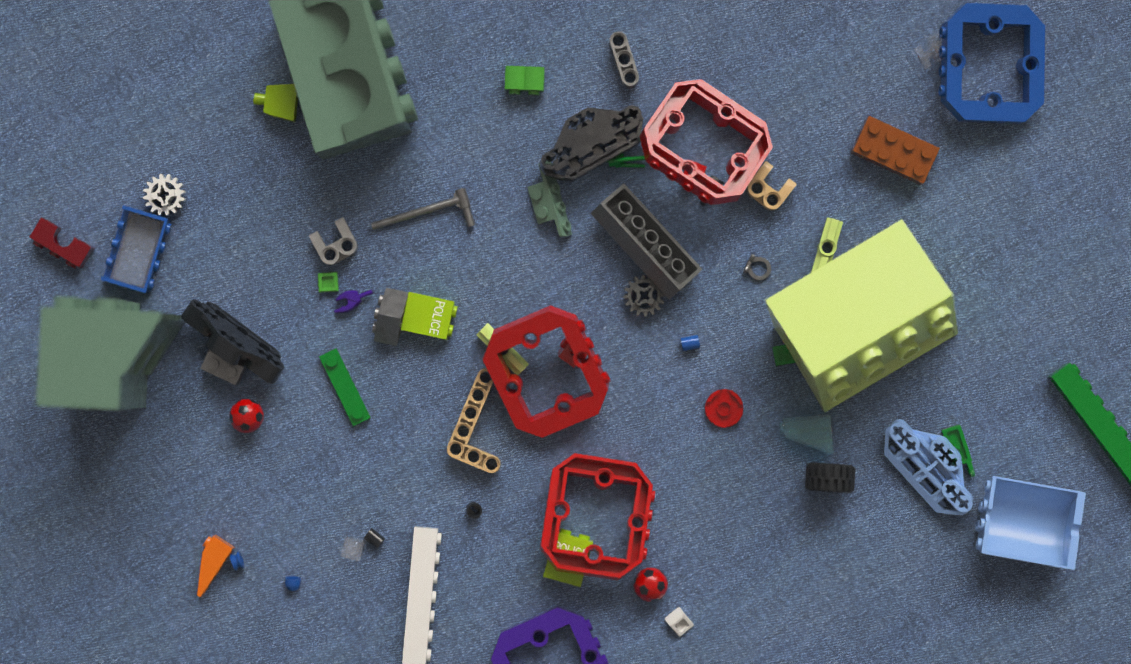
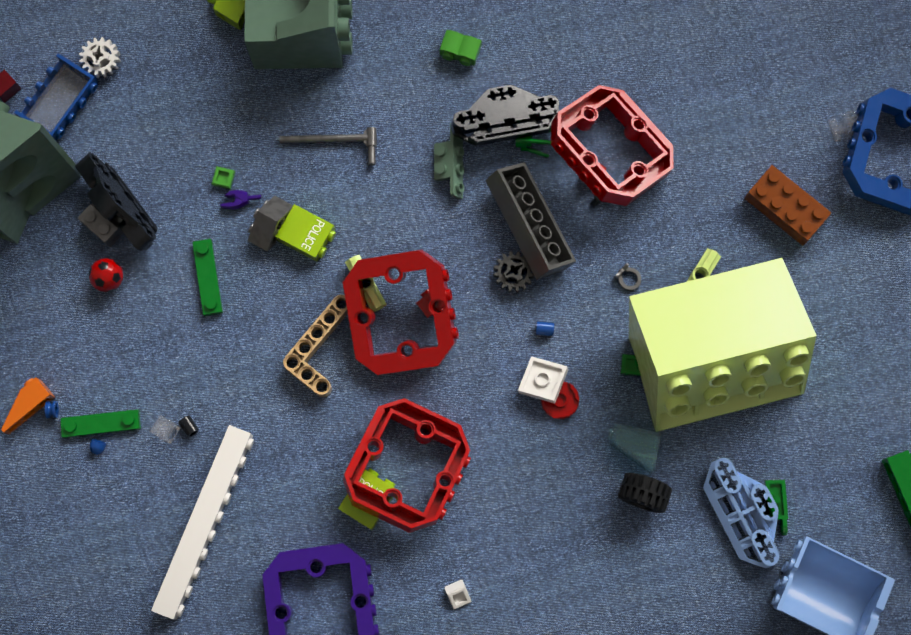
camera: 20 degrees right, 10 degrees down
(288, 560) = (100, 423): none -> green plate
(337, 246) = (242, 147): light grey piece -> none
(471, 513) = (287, 427): black hinge -> none
(618, 51) = (558, 47): light grey beam -> none
(650, 584) = (440, 547): red piece -> none
(702, 395) = (543, 380): none -> white plate
(767, 190) = (650, 212): tan piece -> none

